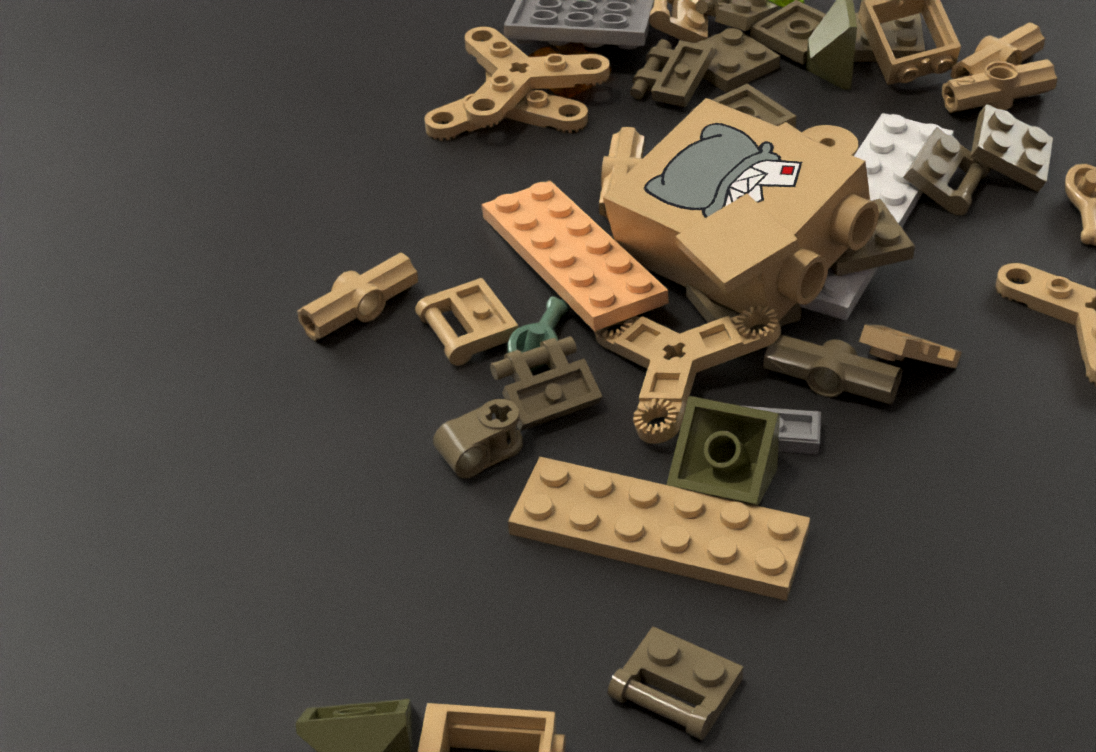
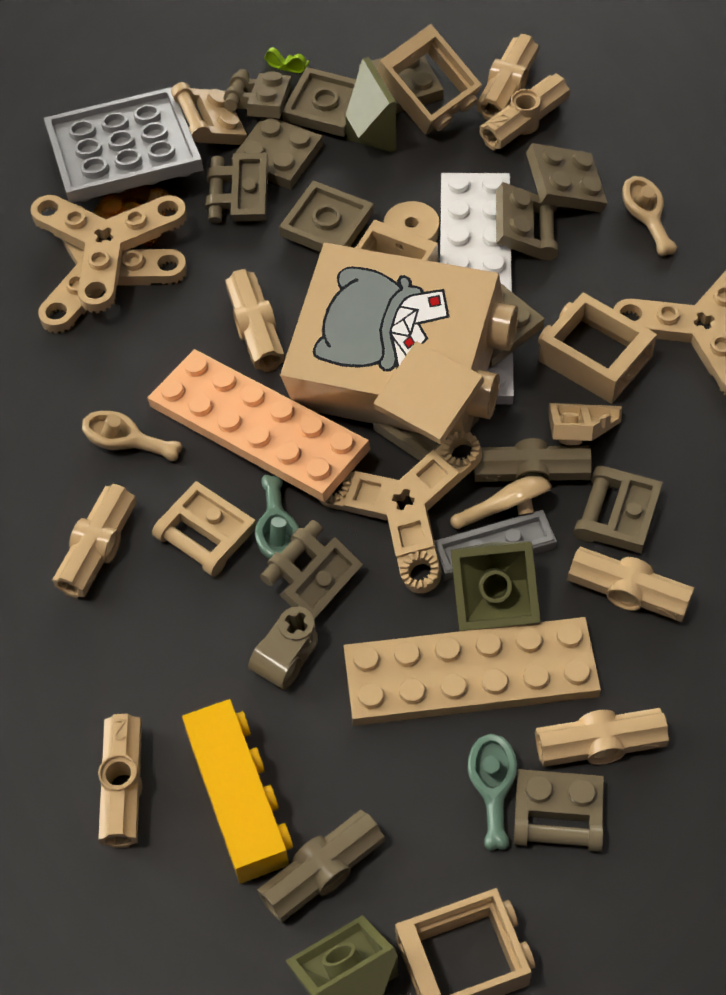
camera: 25 degrees left, 15 degrees up
(249, 491) = (120, 802): none -> tan piece
(349, 537) = (236, 791): none -> yellow brick
(394, 633) = (321, 865): none -> dark tan piece
(438, 222) = (118, 432): none -> tan piece
(621, 620) = (492, 772): none -> sand green piece
(762, 630) = (601, 737): none -> tan piece
(793, 388) = (516, 493): none -> tan piece
(879, 505) = (630, 583): none -> tan piece
(913, 446) = (630, 514): none -> dark tan plate
(964, 325) = (596, 378): none -> tan window

